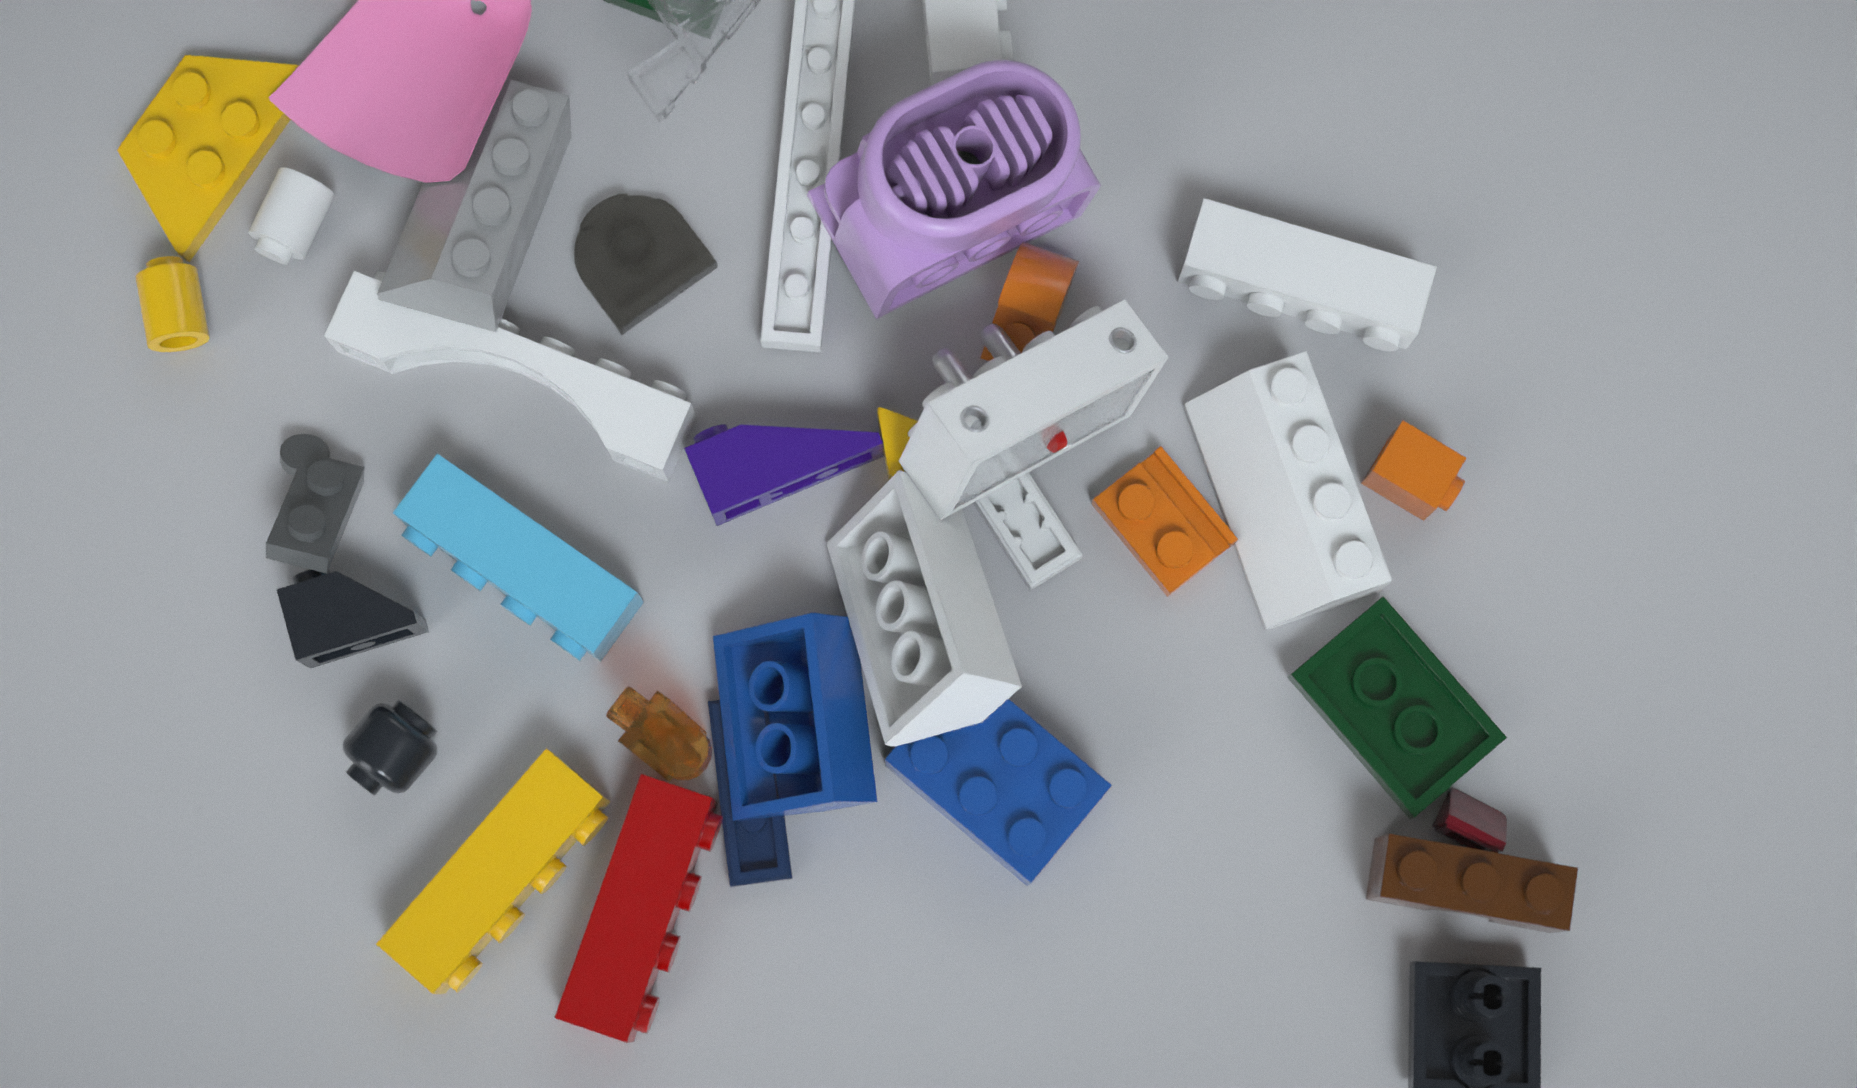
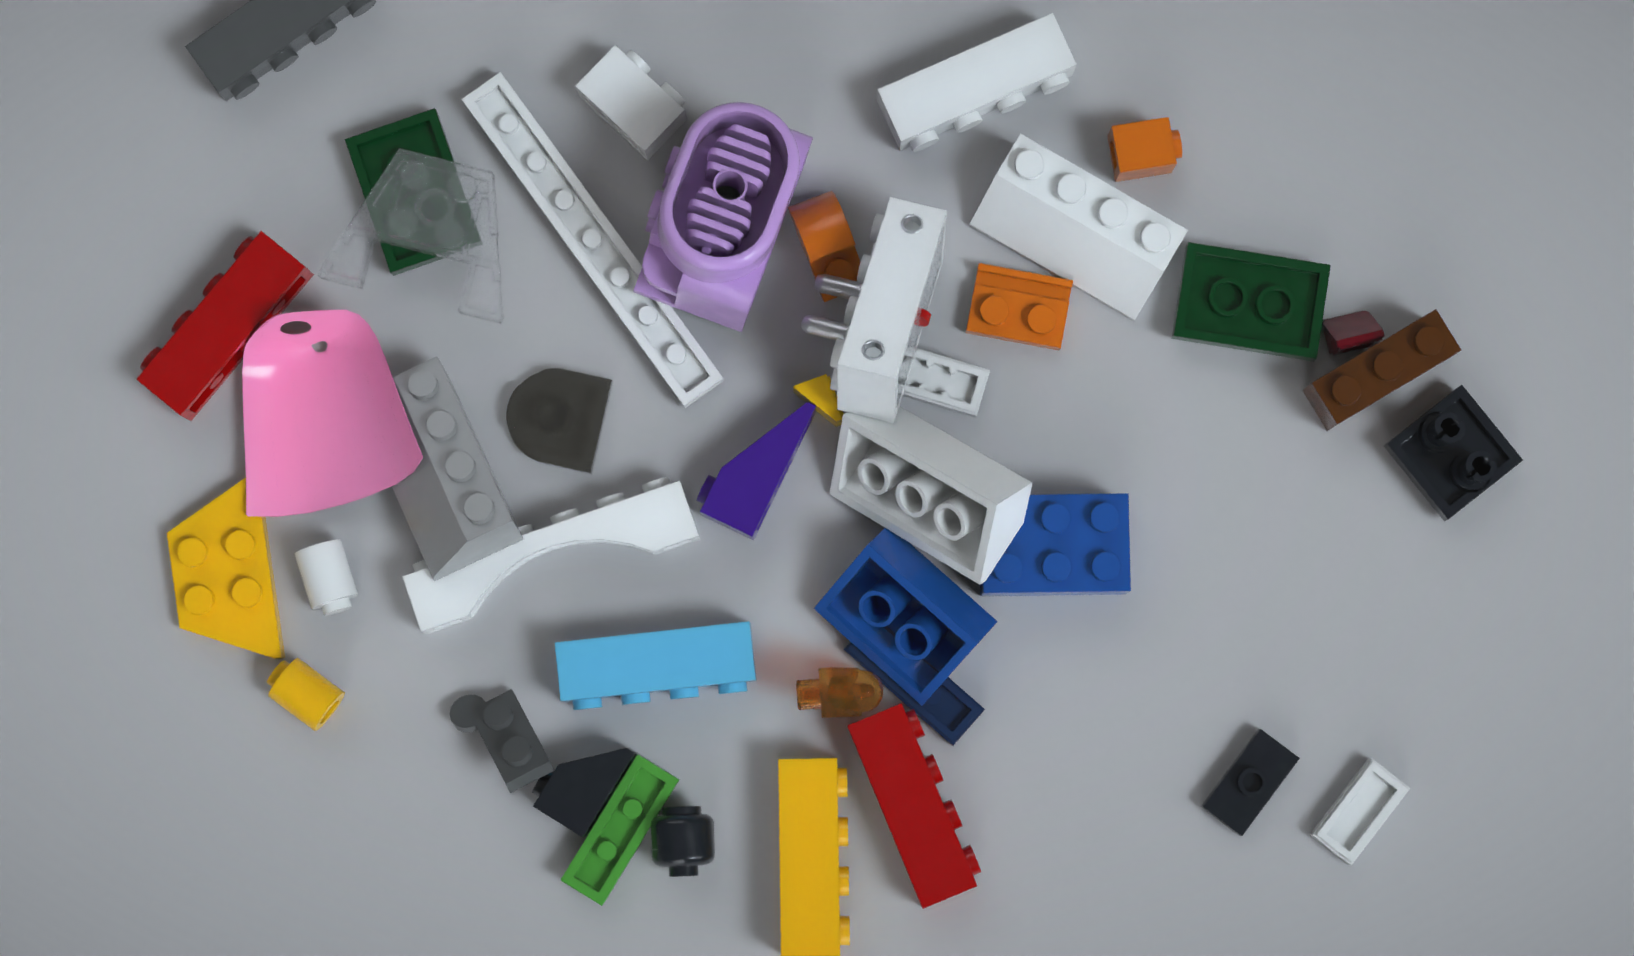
camera: 35 degrees left, 5 degrees up
(342, 687) = (620, 829): none -> bright green plate

